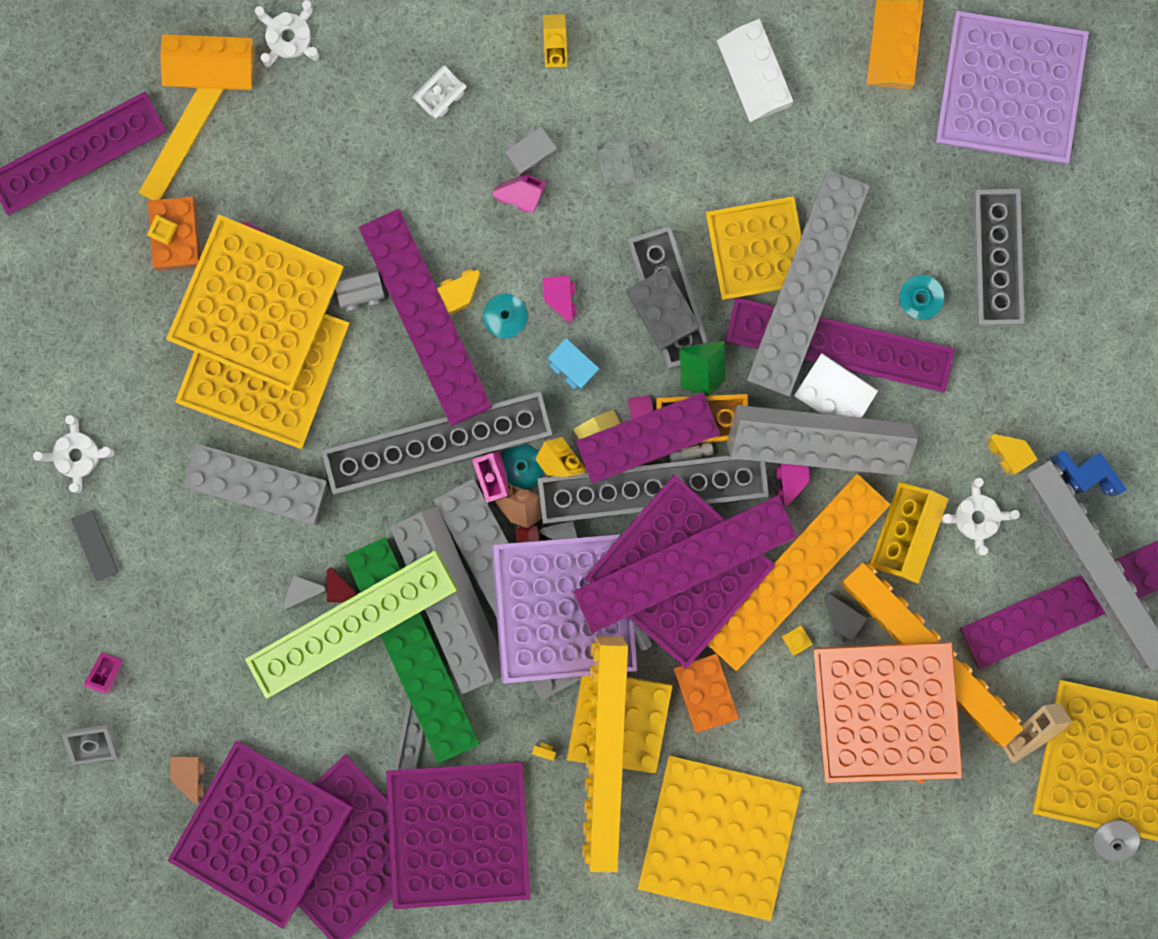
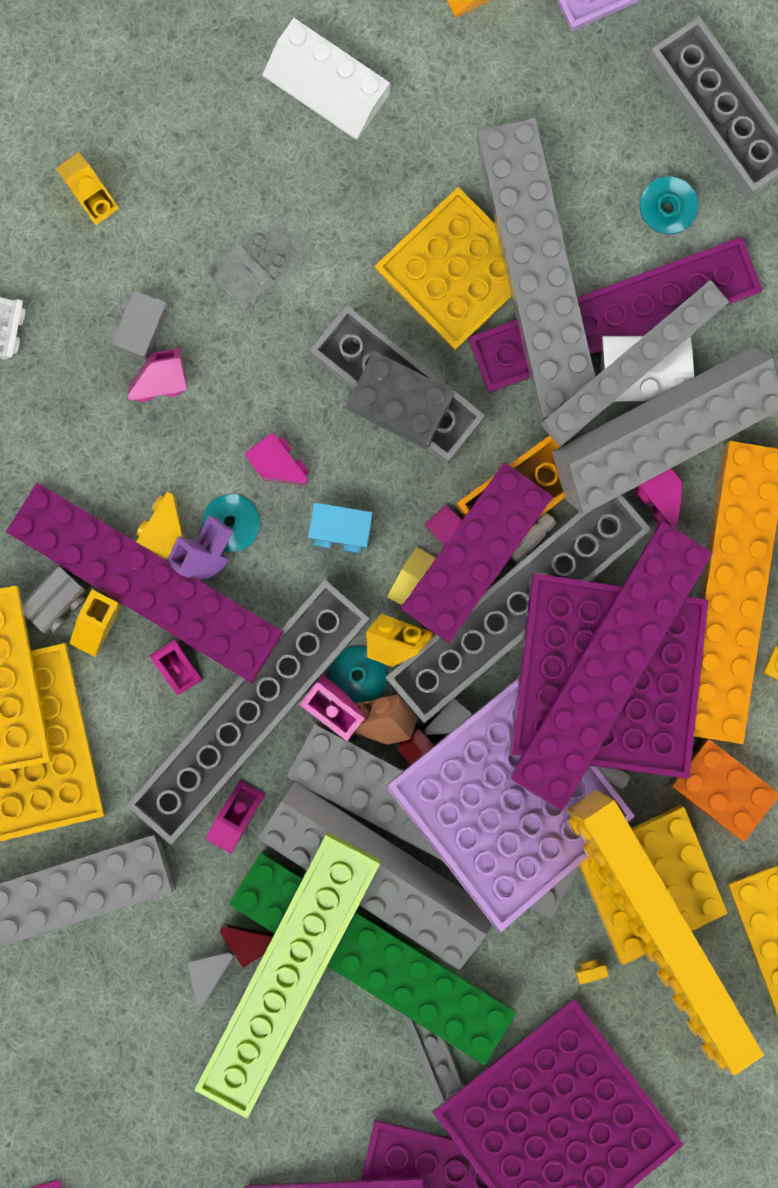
camera: 30 degrees left, 0 degrees up
(376, 322) = (94, 622): none -> yellow slope
(384, 504) = (235, 816): none -> dark pink slope
(409, 384) = (176, 666): none -> dark pink slope
(474, 326) = (204, 556): none -> medium lavender brick
(702, 367) = (484, 436): green slope -> none
(828, 384) = (634, 363): none -> light grey plate

